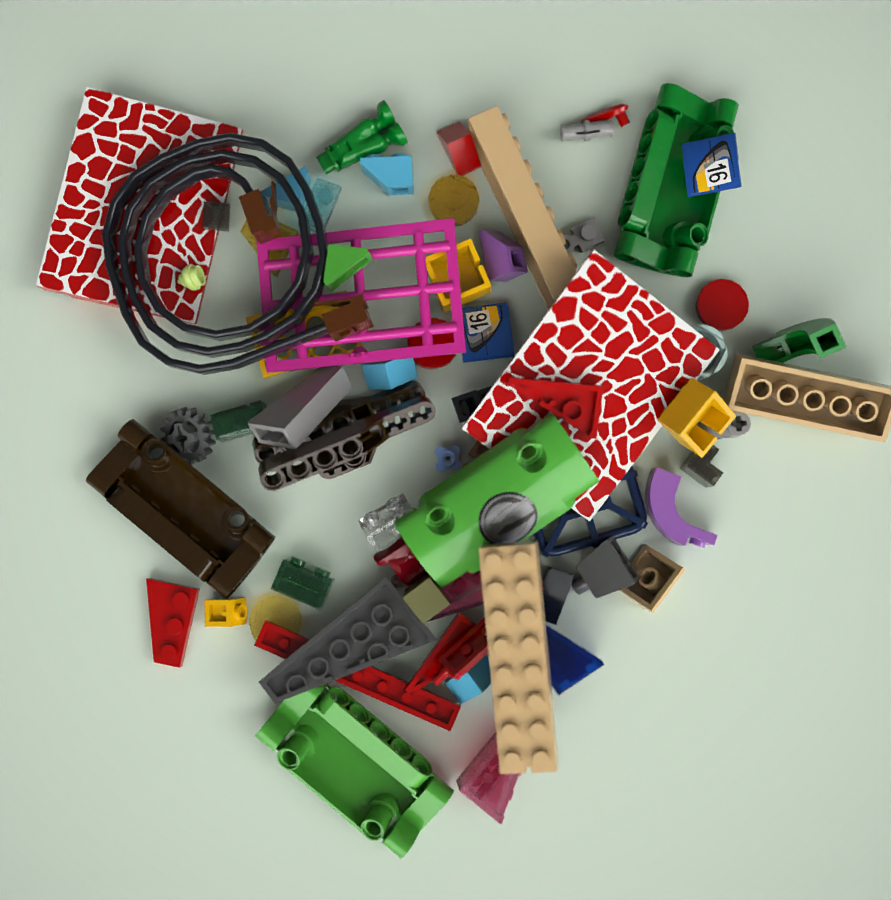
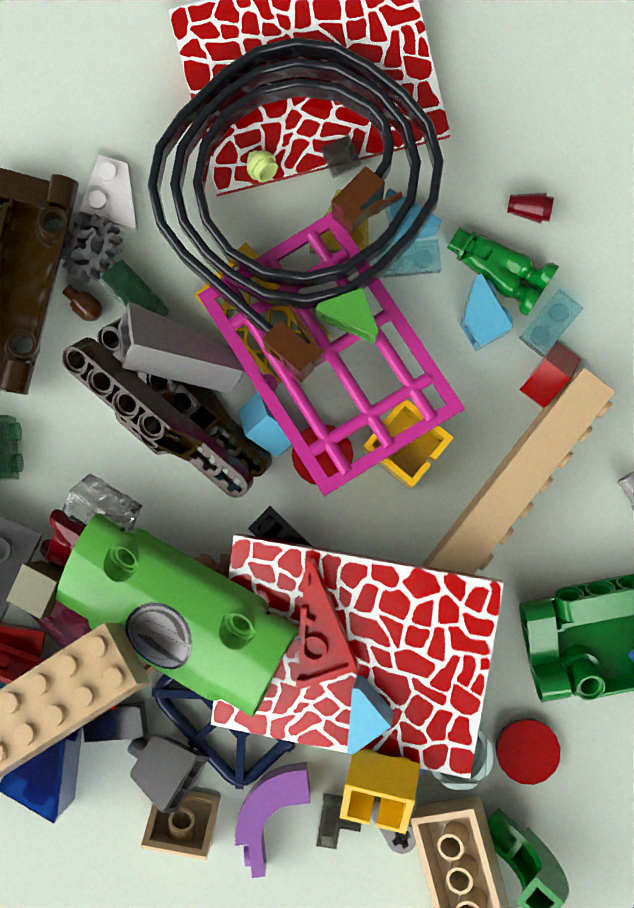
camera: 60 degrees right, 0 degrees up
(152, 402) = (110, 193): none -> white wing
(226, 464) = (83, 303): none -> reddish brown cylinder
(328, 97) = (533, 206): none -> dark red cone
(421, 128) = (551, 323): none -> clear light blue plate
(442, 453) = (197, 531): light blue plate -> none
(454, 198) = (491, 397): clear yellow tile -> none
(487, 332) = (363, 507): slope -> none
(502, 256) = (455, 481): medium lavender slope -> none
(584, 236) = (525, 559): light grey plate -> none
(640, 397) = (368, 715): none -> medium azure slope

